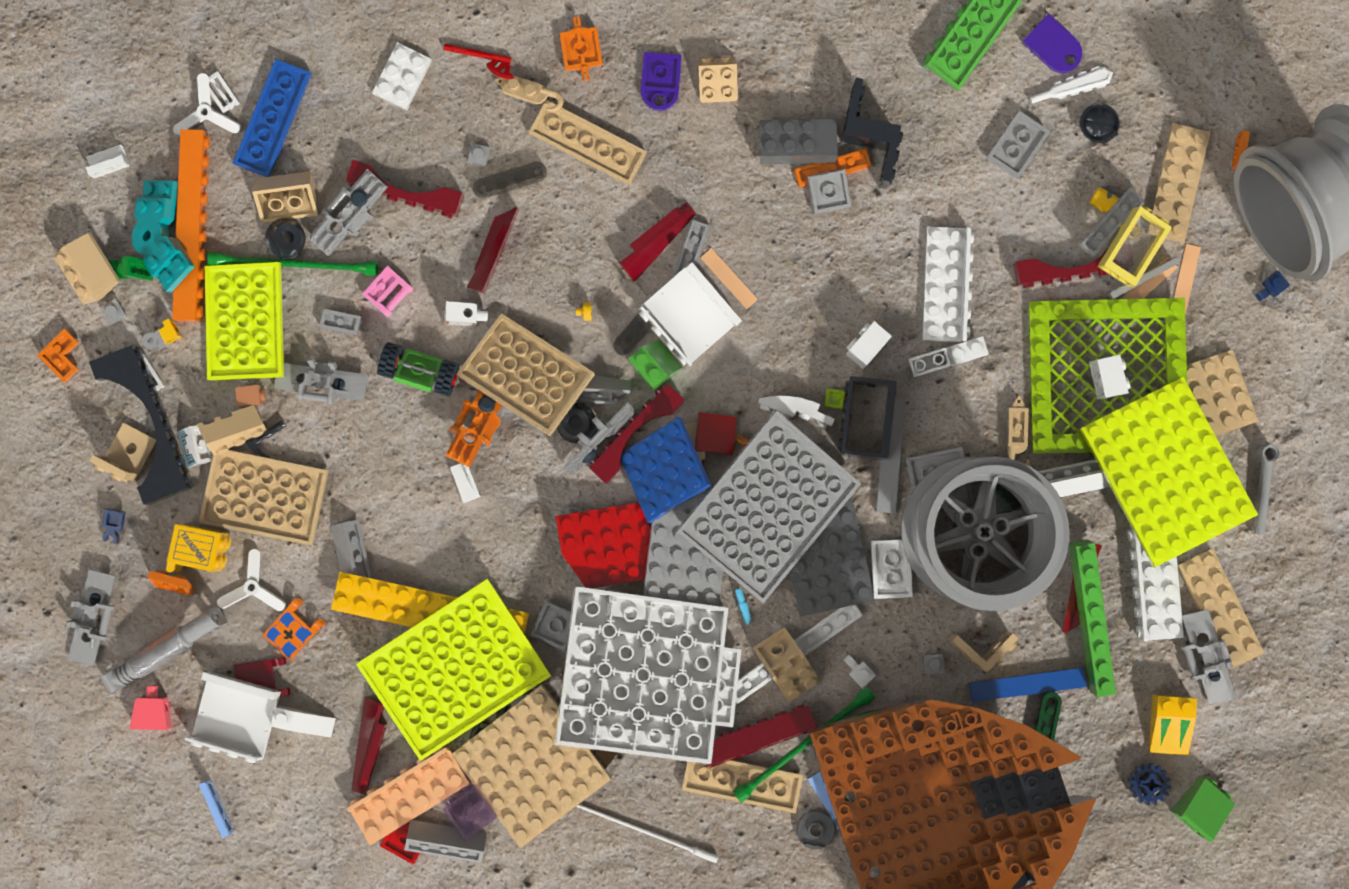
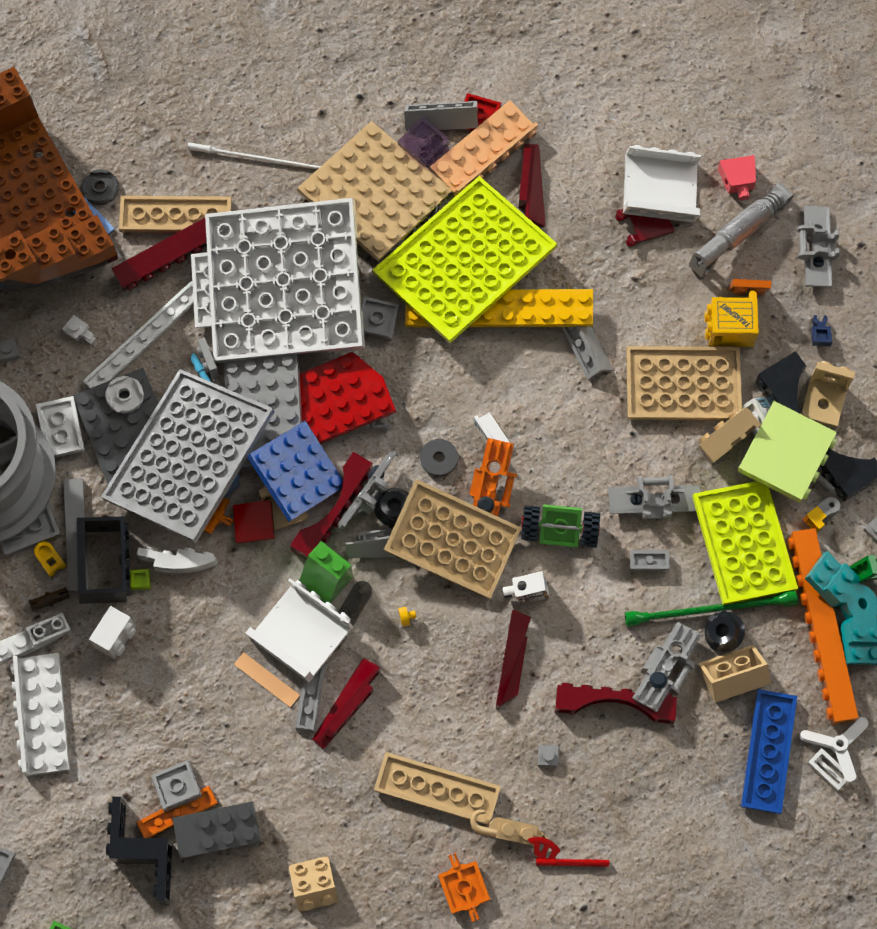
camera: 170 degrees right, 15 degrees down
(178, 397) = (787, 452): none -> yellowish green brick
(216, 808) = (658, 106): light blue tile -> none
(244, 591) = (679, 296): white piece -> none
(250, 395) = (720, 472): nougat brick -> none
(267, 434) = (706, 428): black piece -> none
(290, 632) = (628, 268): orange flag -> none
(302, 721) = (598, 192): white slope -> none
(383, 286) = (614, 603): bright pink plate -> none
(402, 76) = (646, 823): white plate -> none
(509, 180) = (509, 734): clear smoke plate -> none
(511, 466) = (434, 447): none -> dark grey tile
(660, 79) = (373, 873): dark purple tile -> none
(733, 605) = (209, 364): none -> light grey plate
(744, 790) = (172, 203): green hose -> none
(787, 664) = (144, 316): tan bracket -> none
(834, 588) = (126, 405): none -> white tile
(923, 441) = (44, 553): none -> yellow plate
(924, 395) = (49, 599): none -> dark brown pin

